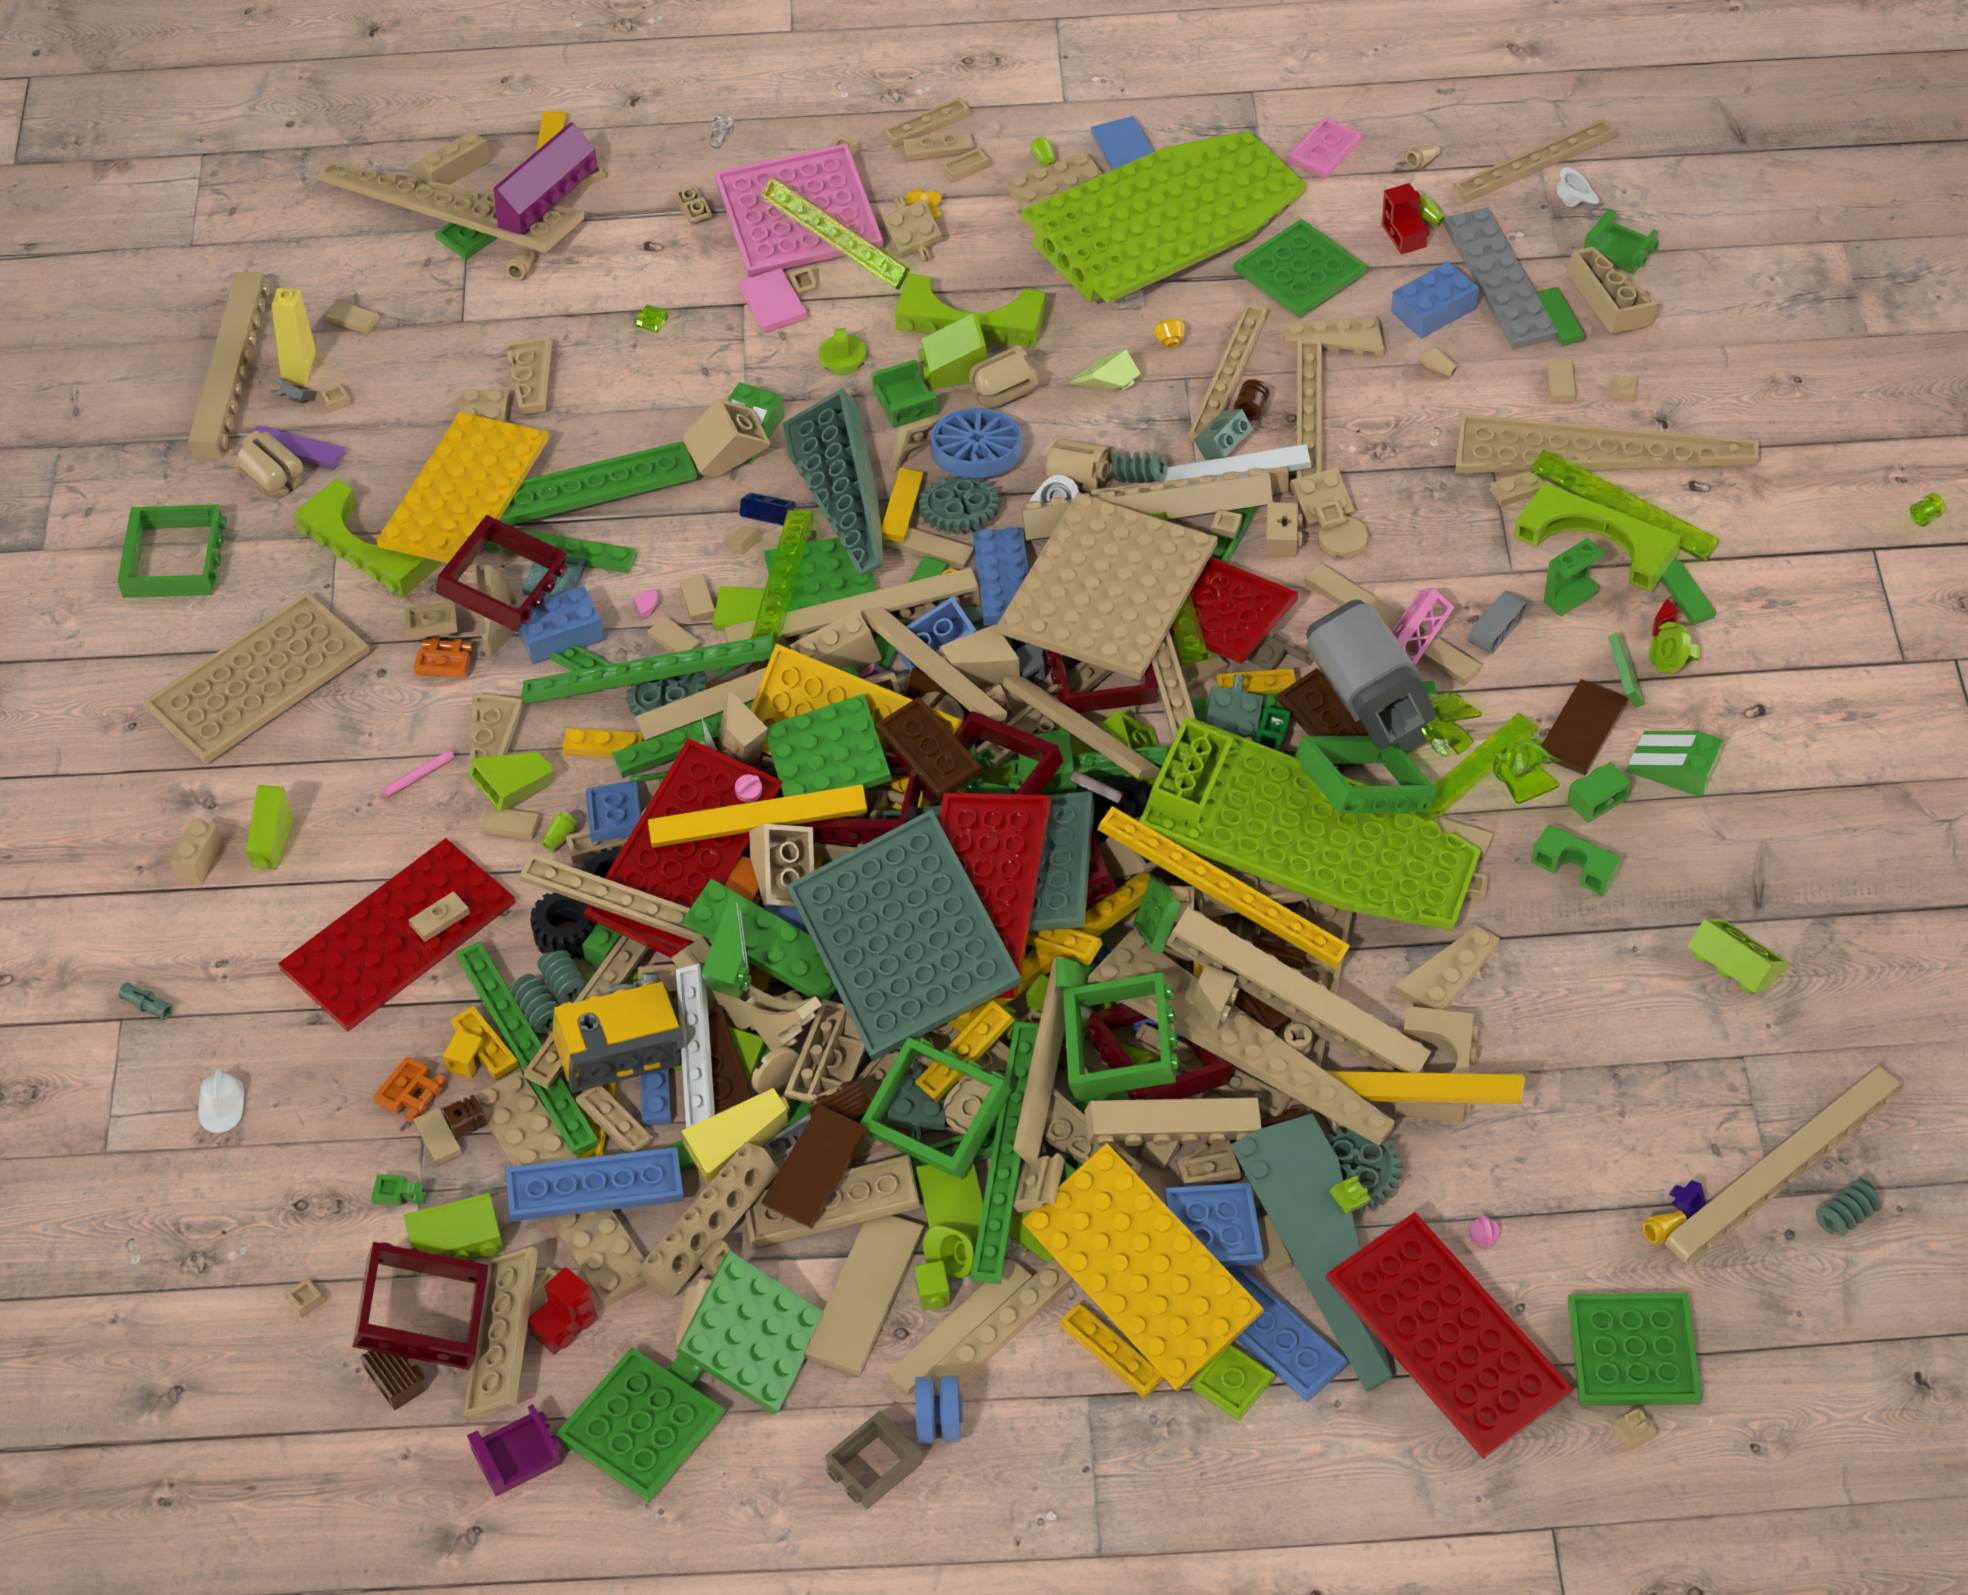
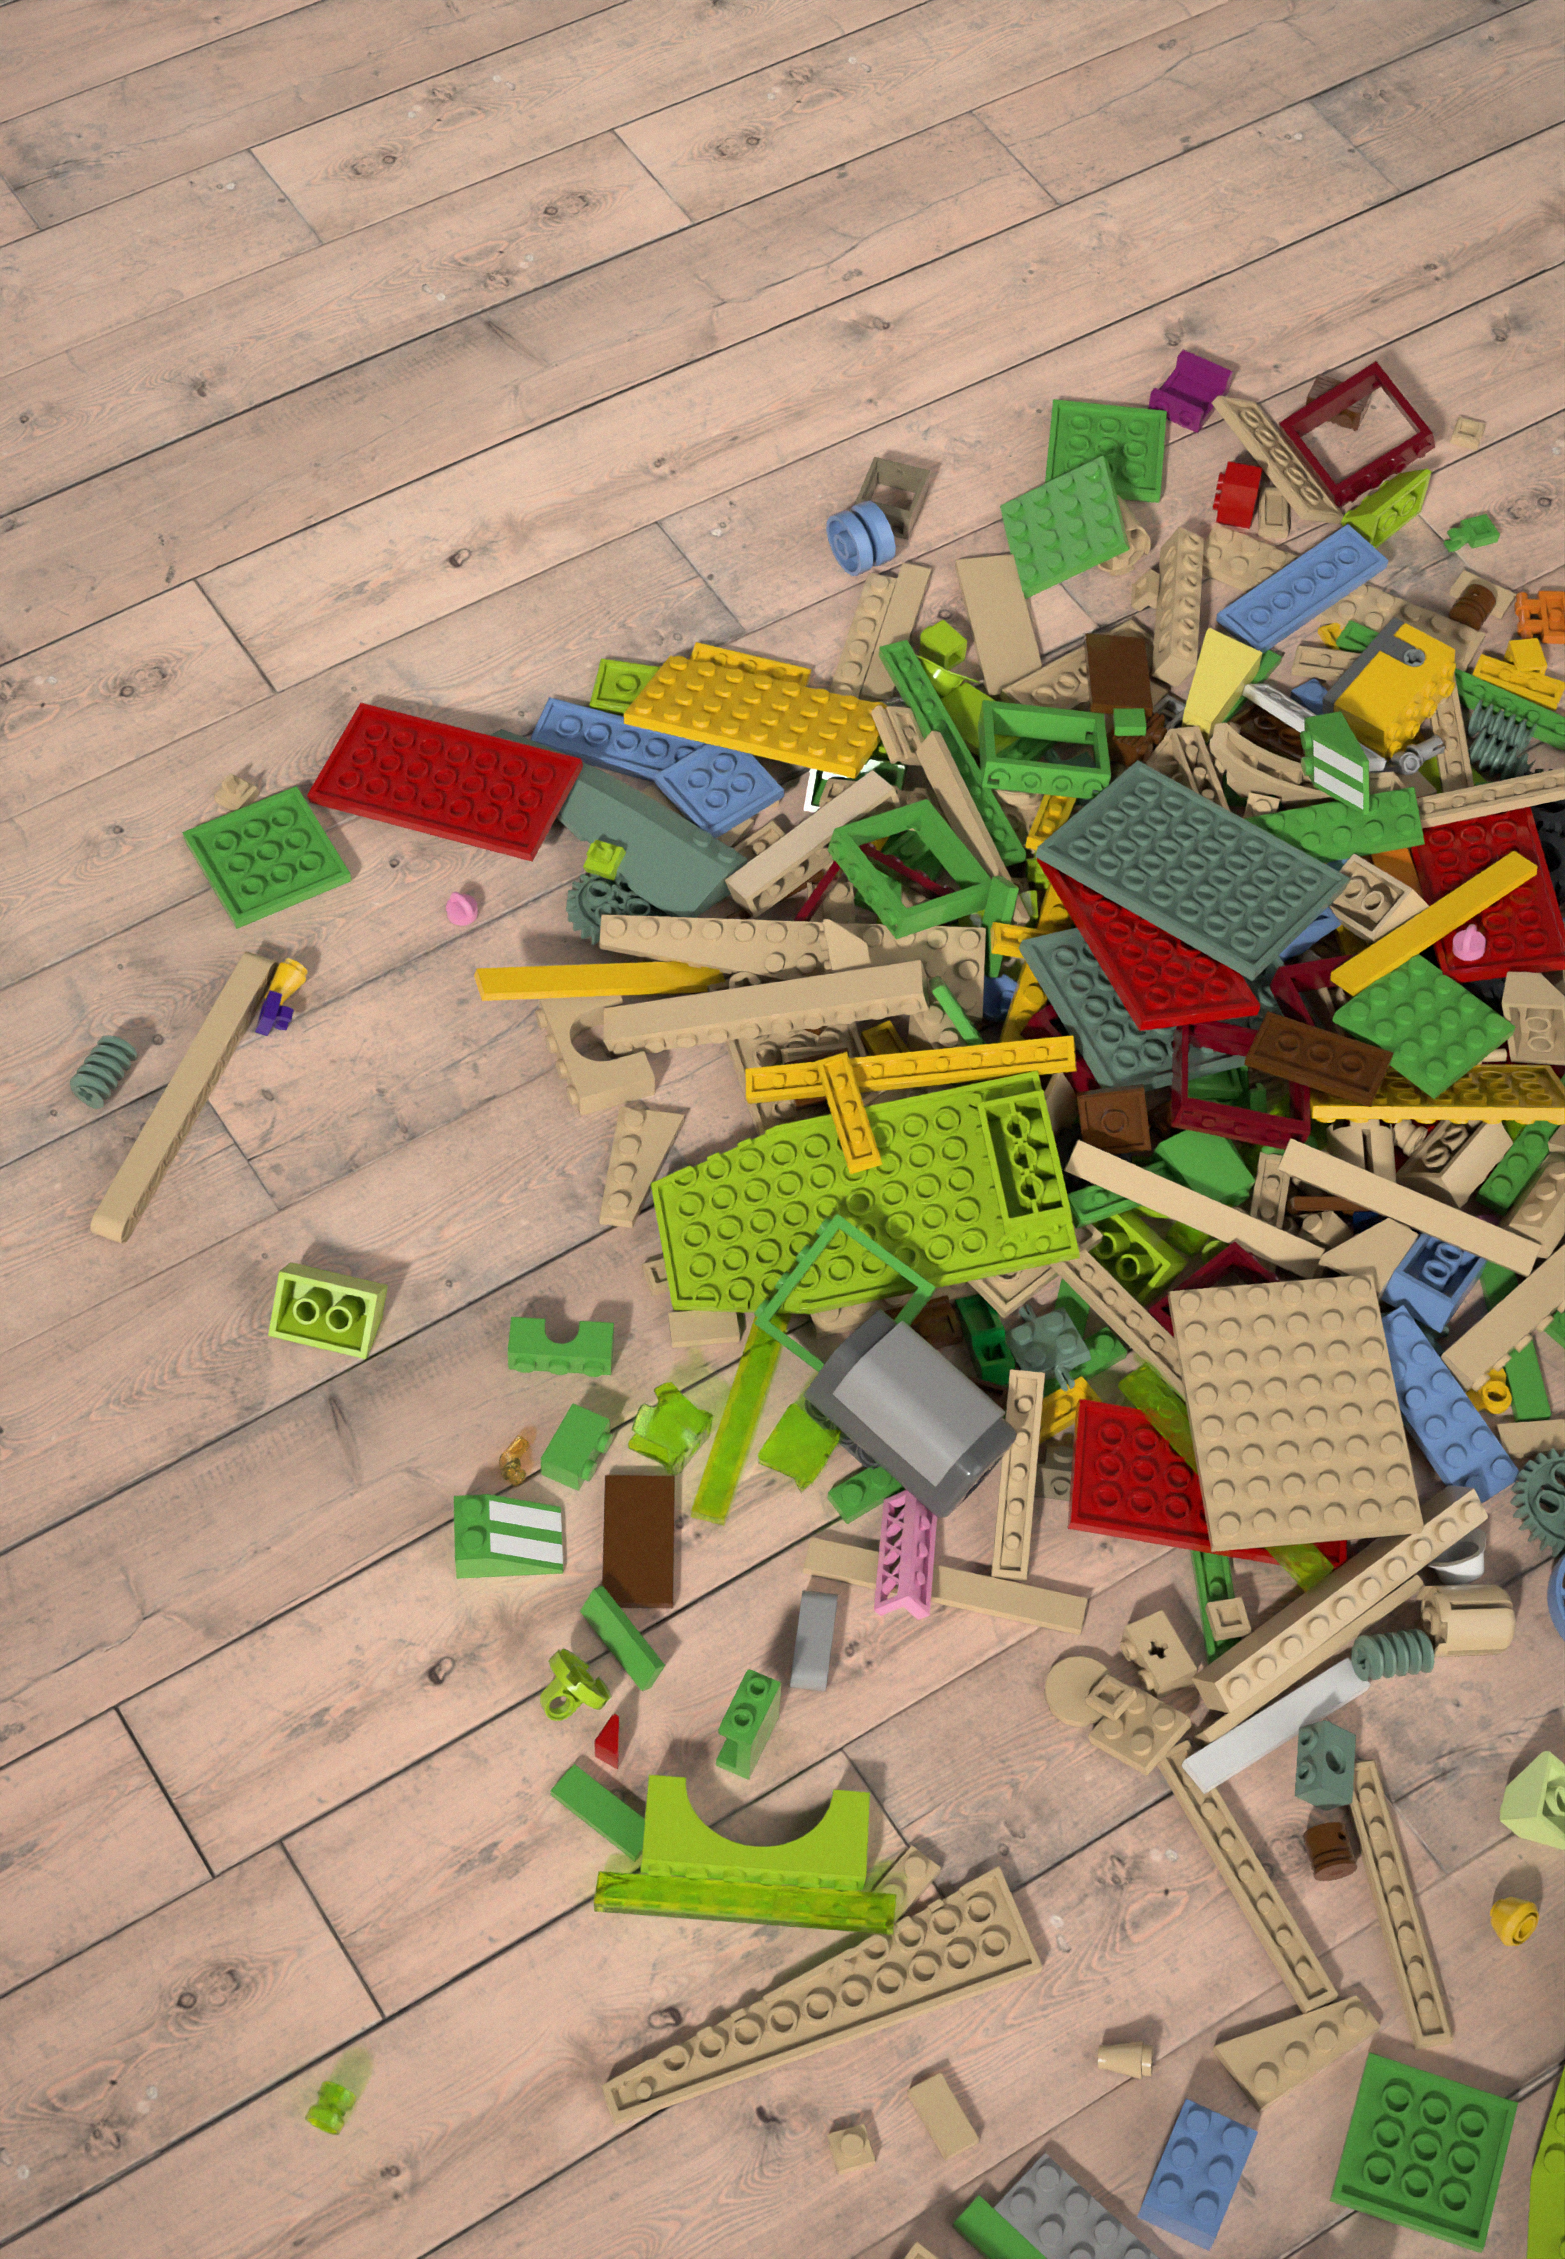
camera: 145 degrees right, 5 degrees up
(846, 1101) = (1129, 722): none -> bright green tile
(1289, 876) = (848, 1113): none -> yellow tile
(1293, 652) = (1018, 1477): none -> tan plate
(1649, 806) = (510, 1461): none -> clear yellow arm

